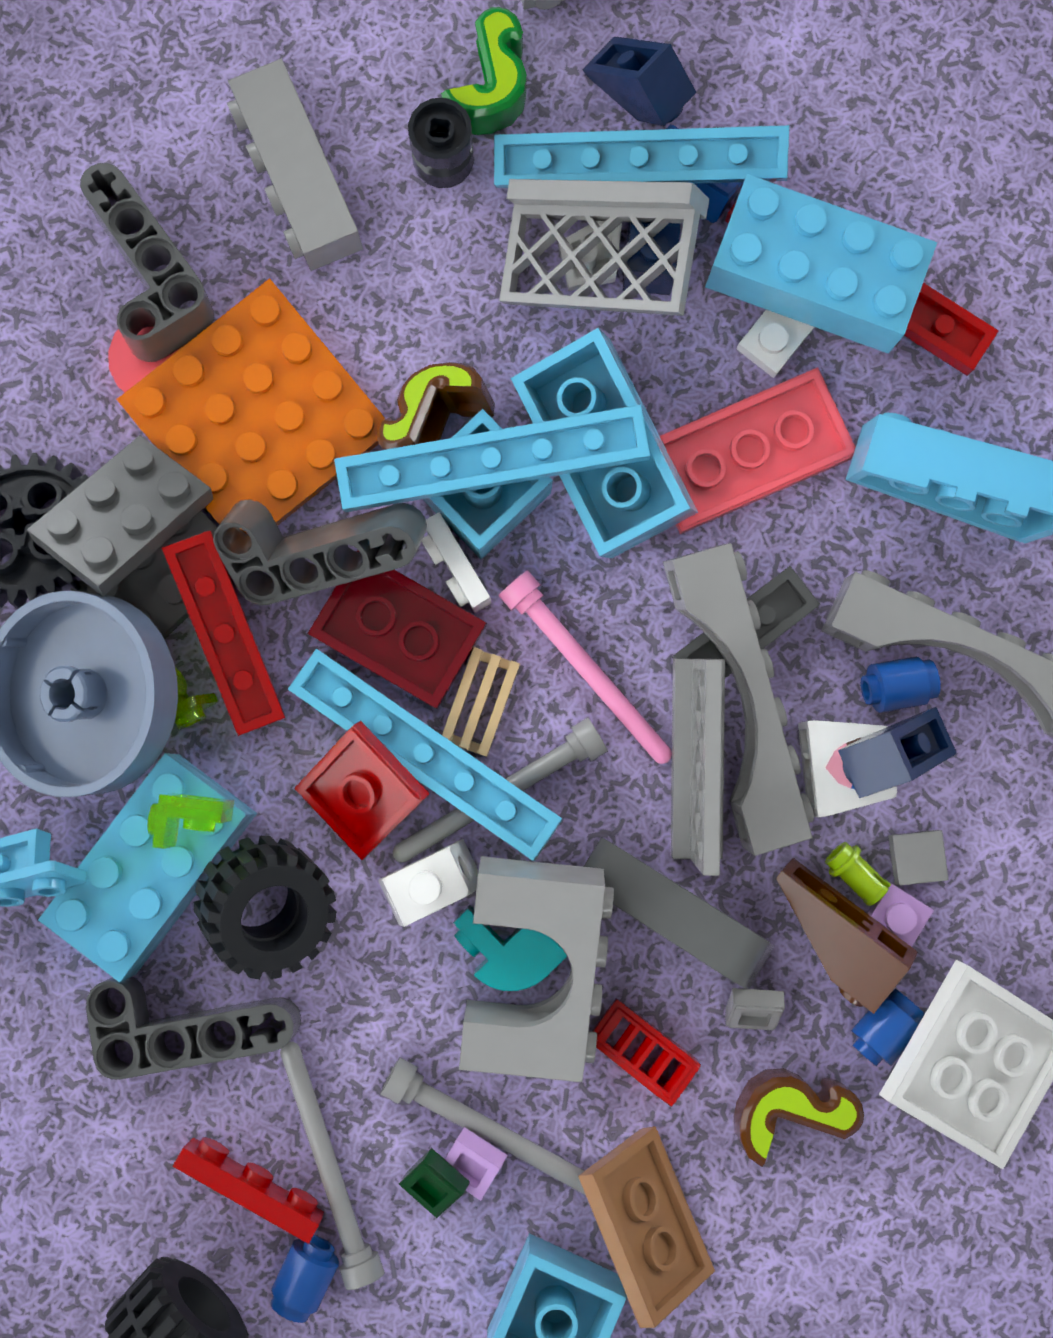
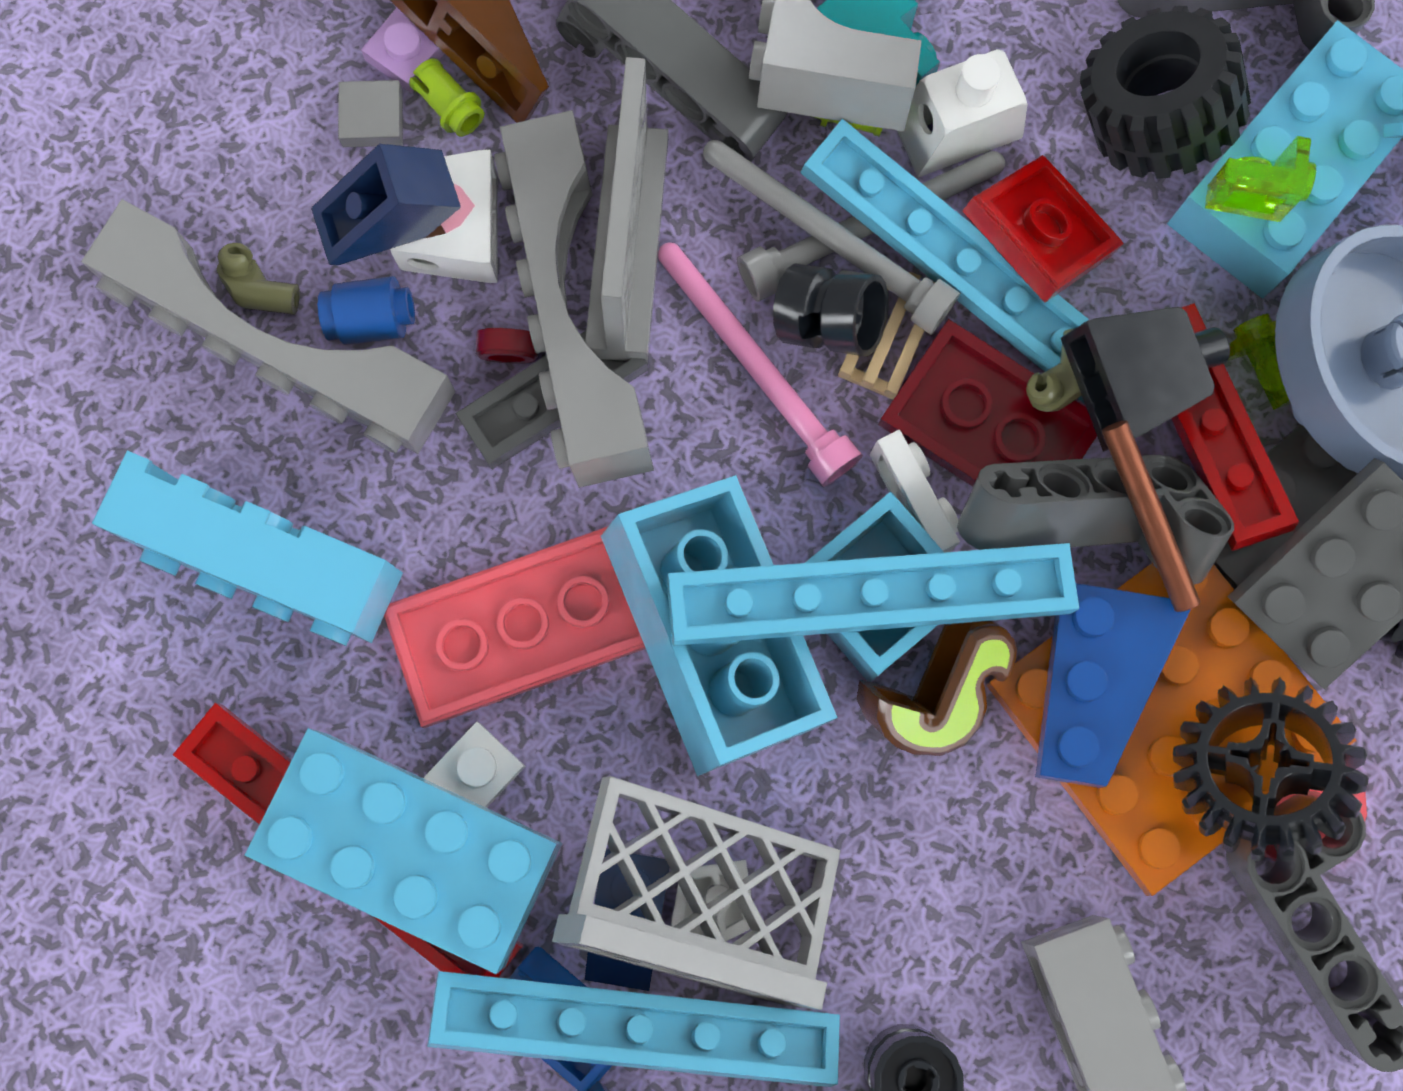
camera: 175 degrees left, 5 degrees down
(196, 312) = (1295, 771): none -> black gear
(279, 538) = (1151, 516): none -> copper bar
(283, 657) = (1143, 367): none -> black torso
(309, 428) = (1101, 679): none -> blue wing
(342, 658) = (1054, 387): none -> olive arm
(456, 719) = (924, 299): none -> light grey piece
(531, 702) = (831, 309): none -> black wheel
(790, 662) = (505, 345): none -> dark red tile
(995, 702) = (249, 286): none -> olive arm

